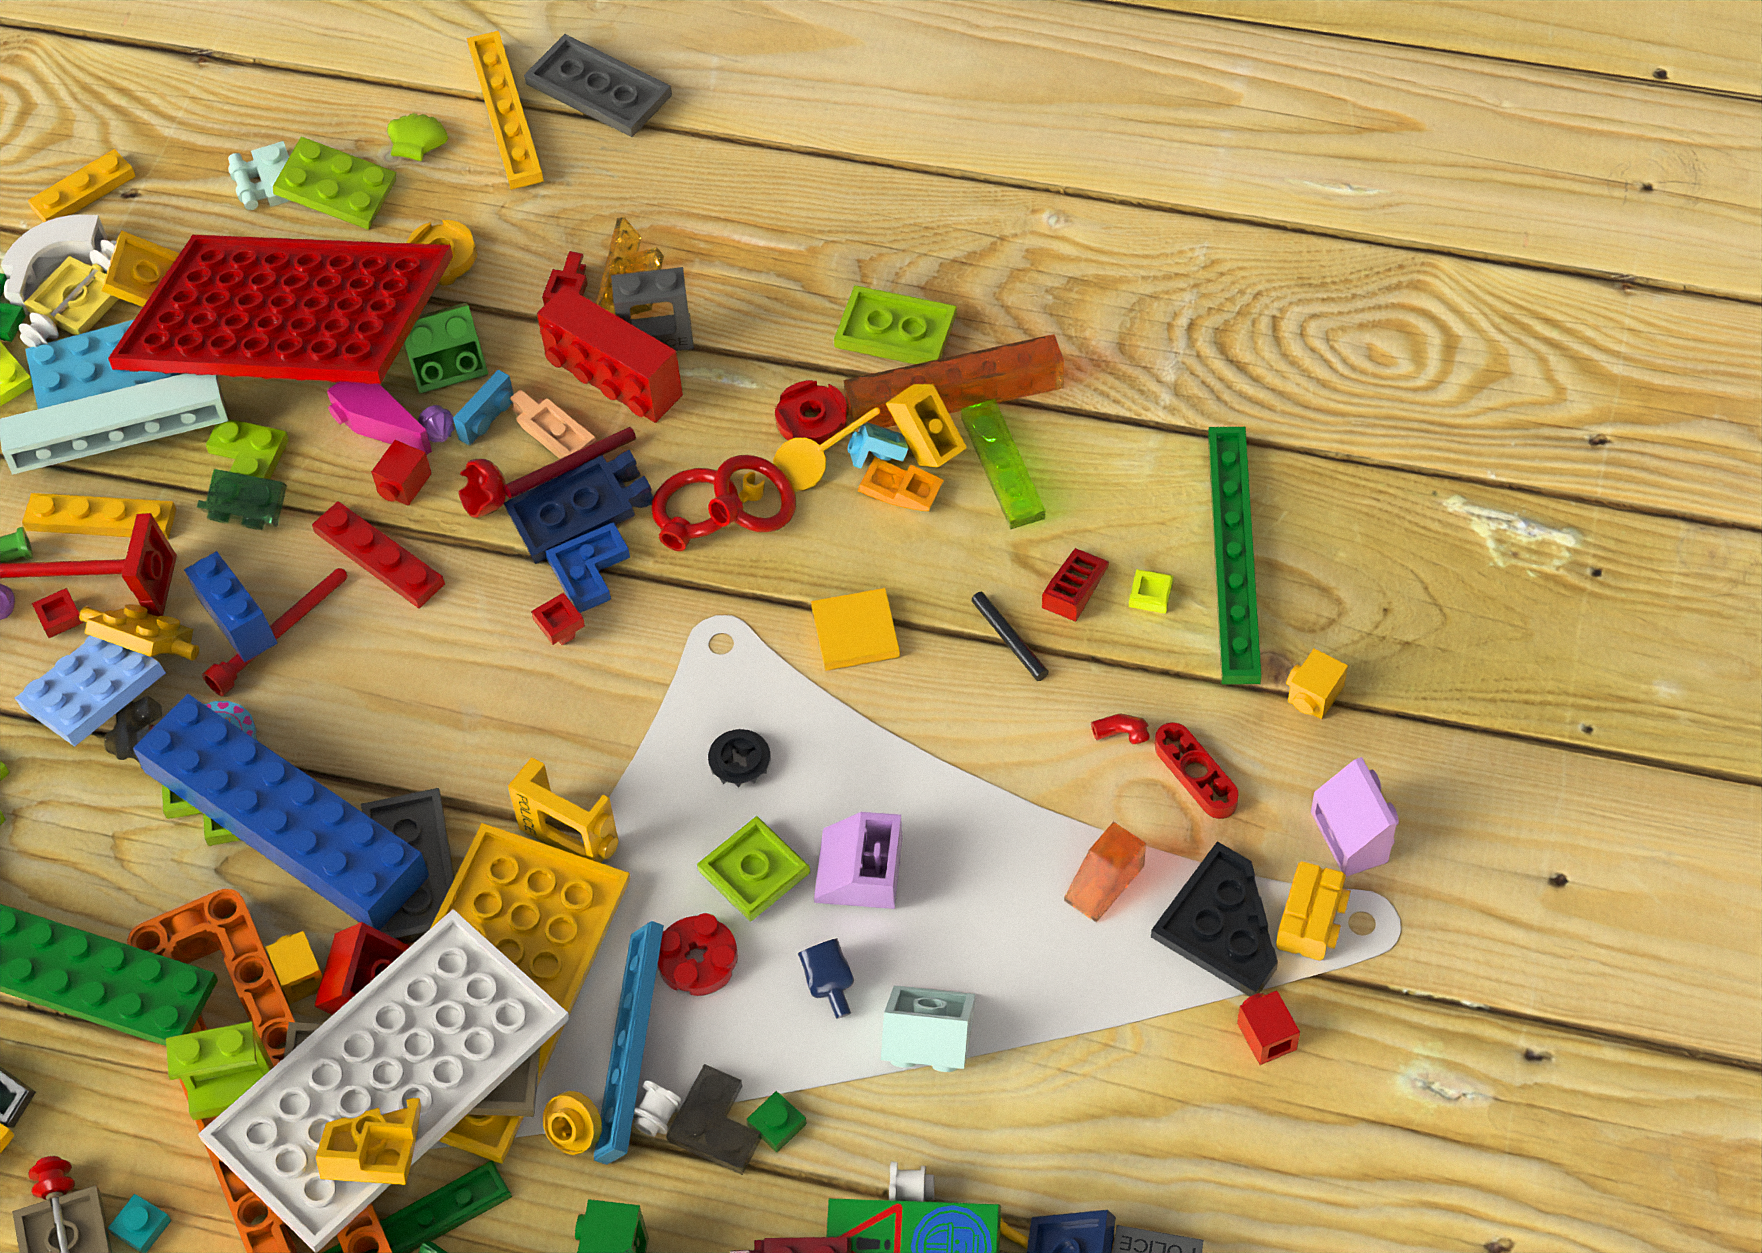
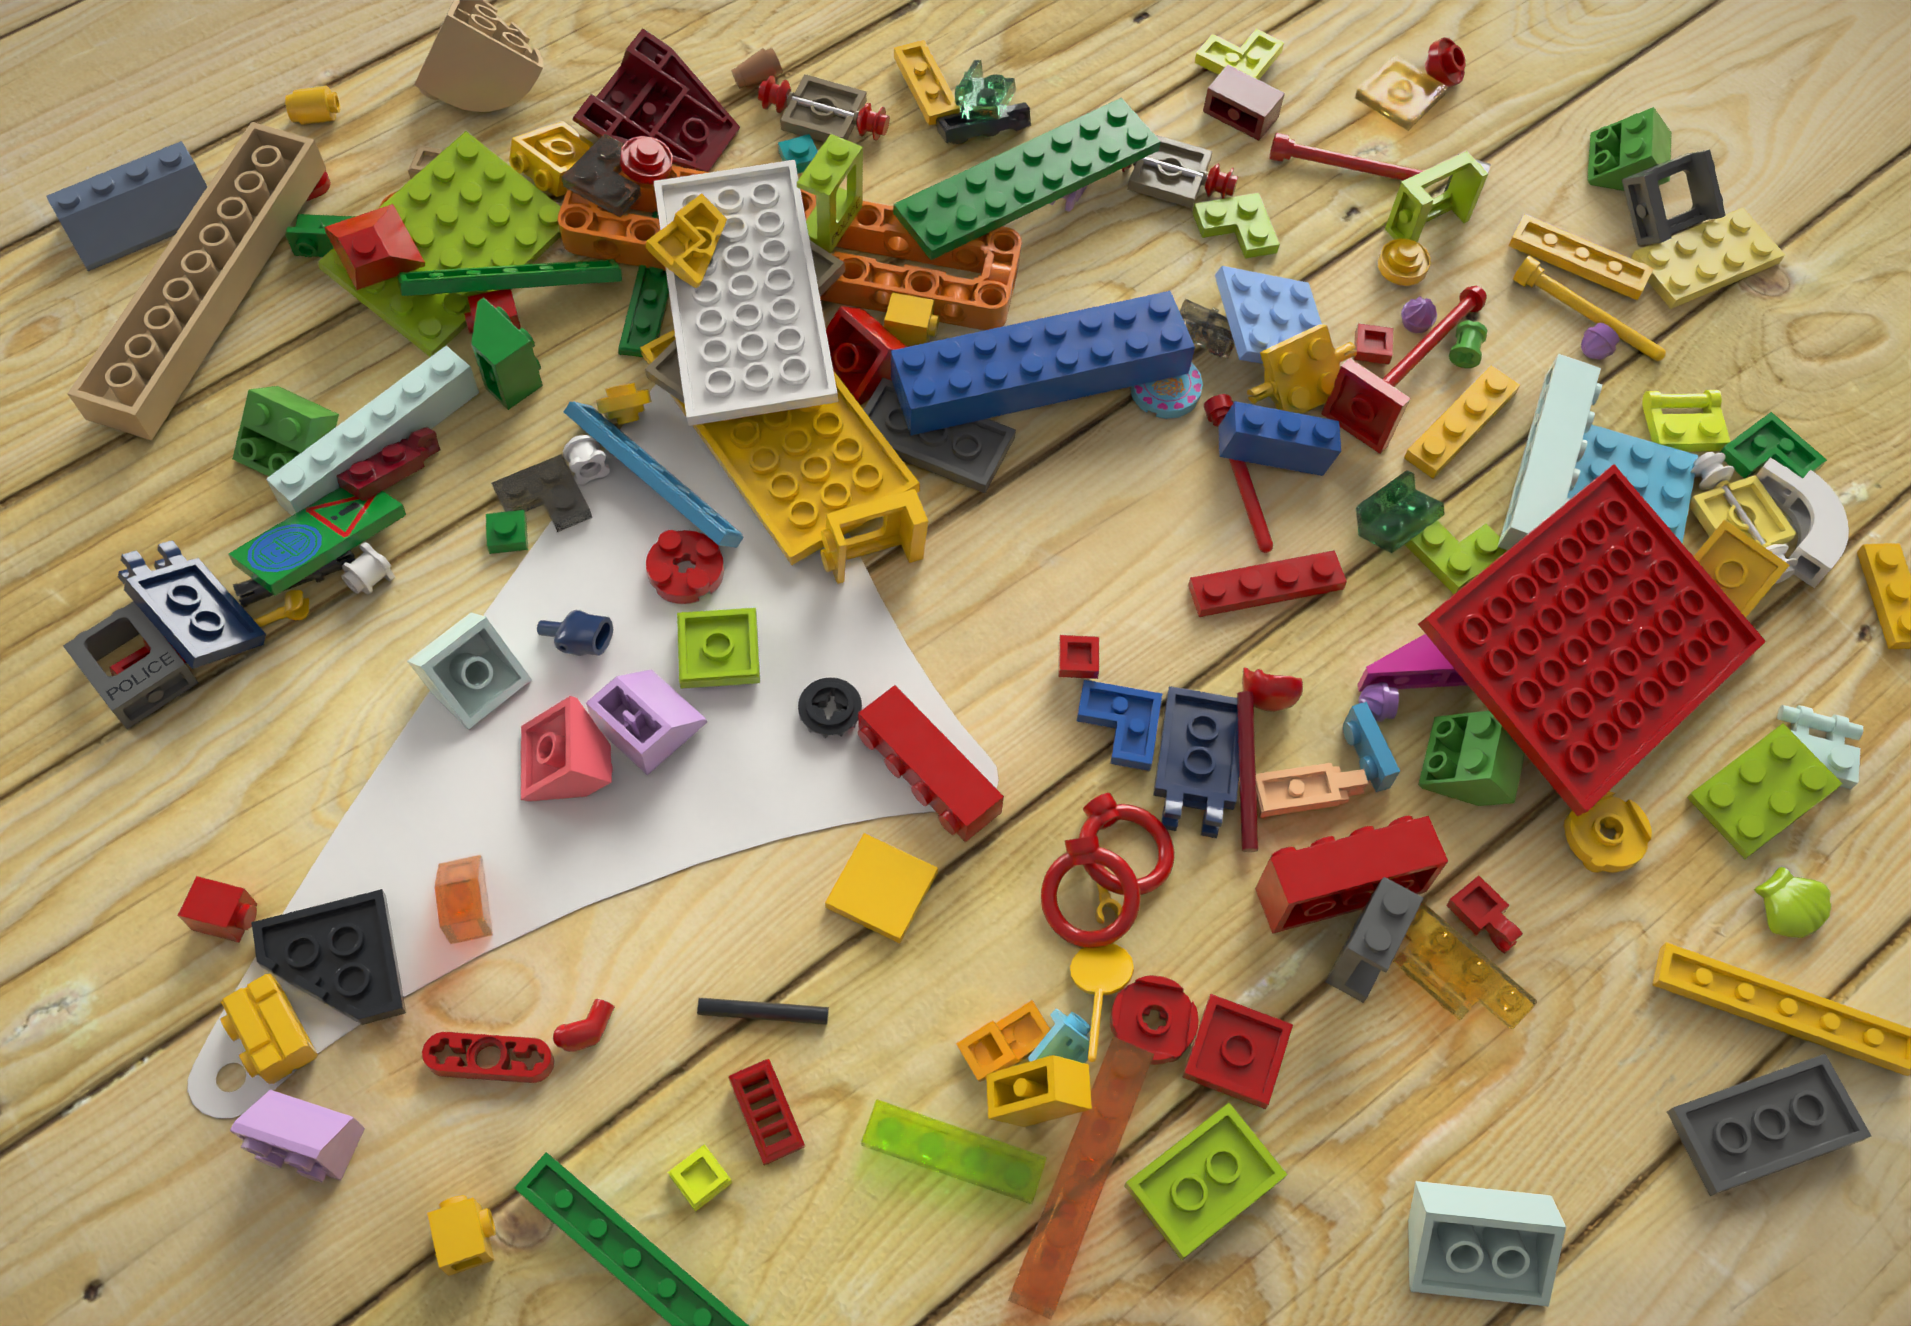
camera: 120 degrees right, 5 degrees up
(401, 473) = (1340, 640): red brick -> none
(733, 657) = (929, 764): none -> red brick
(791, 356) = (1238, 1051): none -> red plate
(805, 176) = (1483, 1243): none -> light aqua slope
(943, 896) = (563, 754): none -> coral slope

